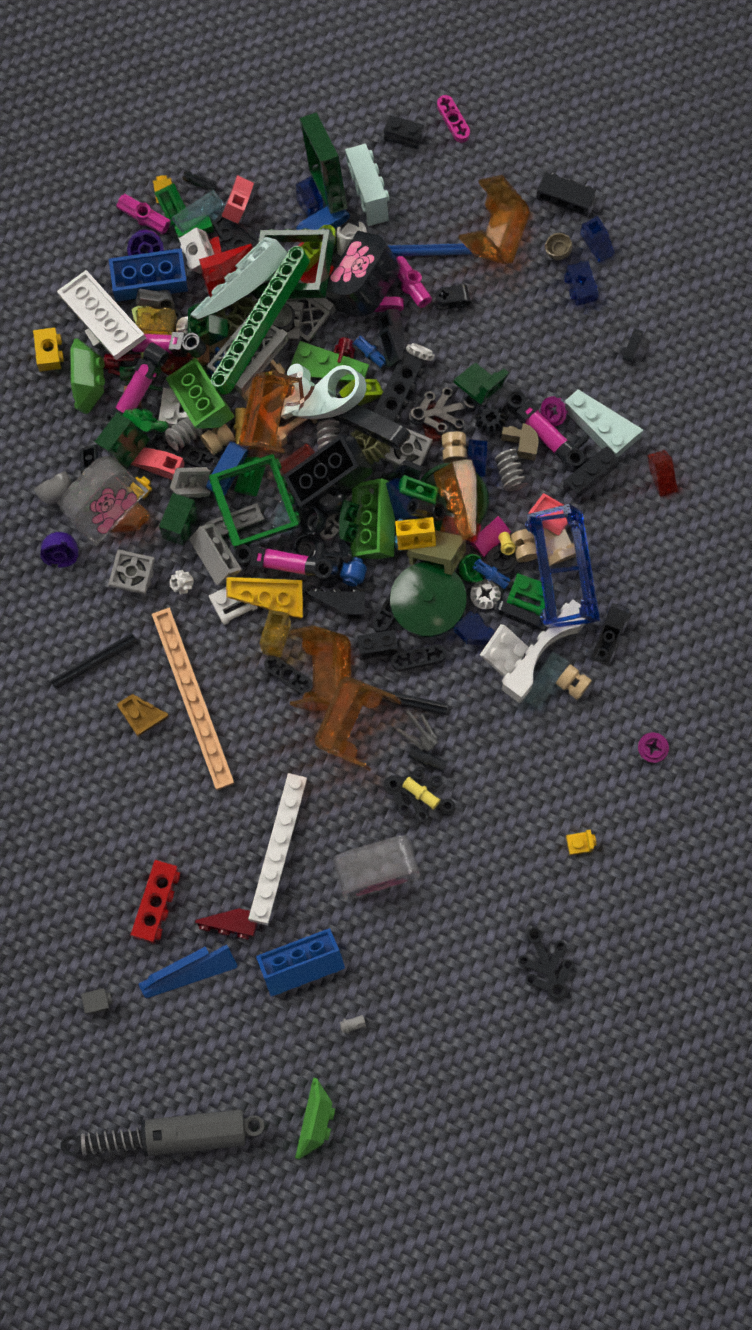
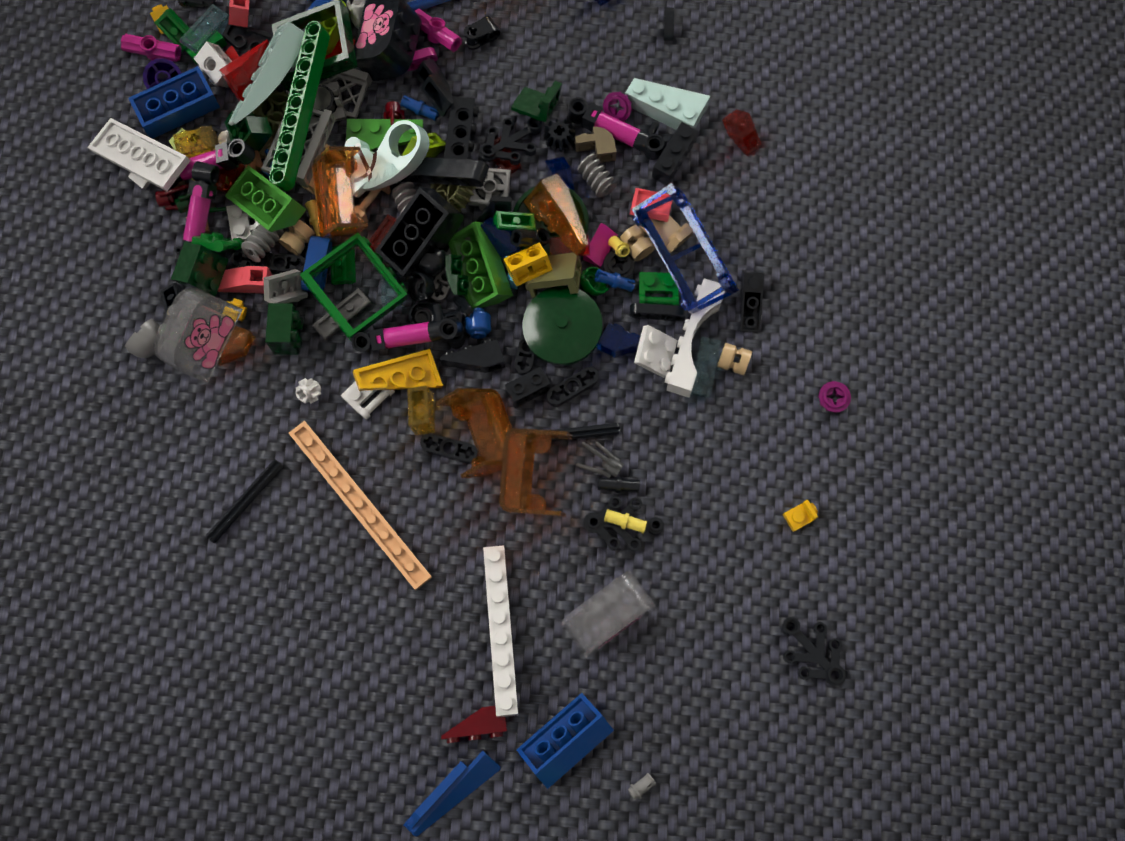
camera: 20 degrees left, 0 degrees up
(48, 338) = (88, 198): yellow brick -> none
(59, 549) = (171, 399): dark purple cylinder -> none
(86, 376) = (142, 219): bright green wedge -> none
(132, 573) = (253, 399): light grey piece -> none
(140, 714) = (311, 539): pearl gold wing -> none
(155, 299) = (187, 122): dark grey piece -> none
(159, 871) = (385, 765): red brick -> none
(214, 553) = (332, 351): light grey brick -> none
(420, 352) = (468, 92): white gear -> none
(454, 447) = (533, 169): tan wheel -> none
(484, 602) = (616, 311): white gear -> none

